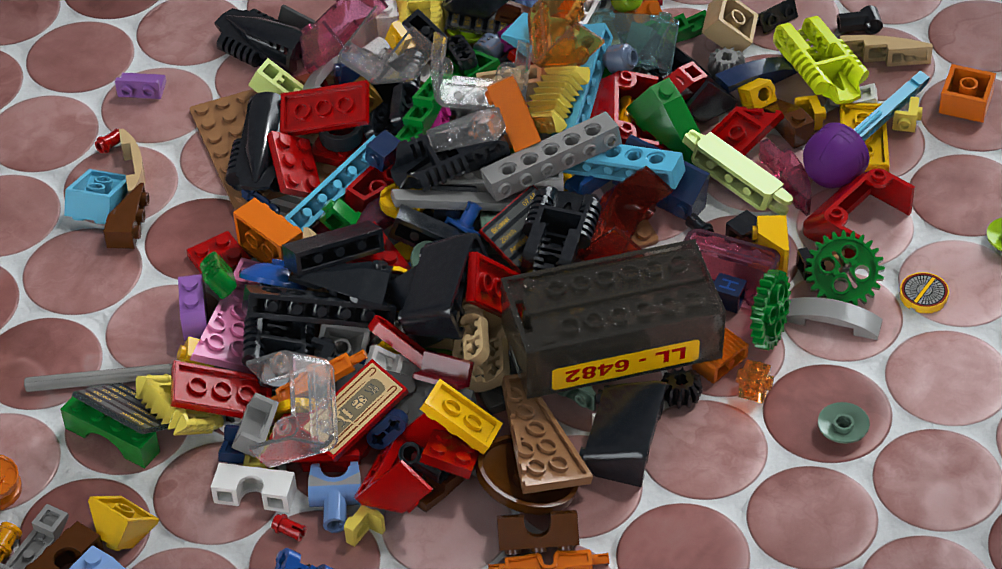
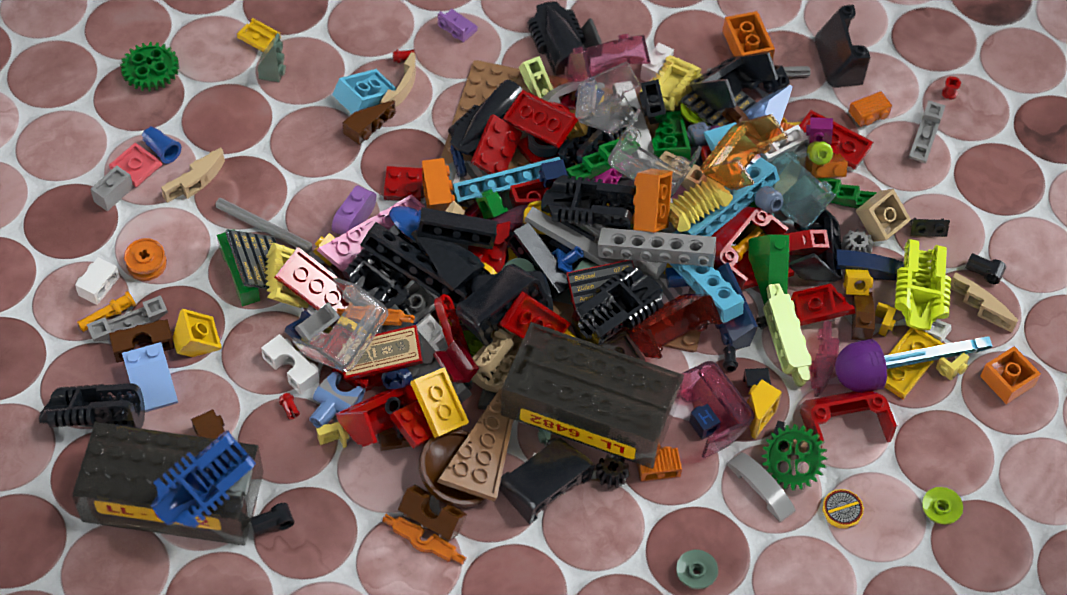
camera: 30 degrees right, 10 degrees up
(218, 275) = (382, 199): green beam -> none
(395, 34) = (631, 93): yellow bracket -> none
(462, 52) = (673, 127): black beam -> none
(467, 130) = (608, 196): clear slope -> none
(754, 380) = (664, 498): clear orange brick -> none
(770, 309) = (711, 455): green gear -> none

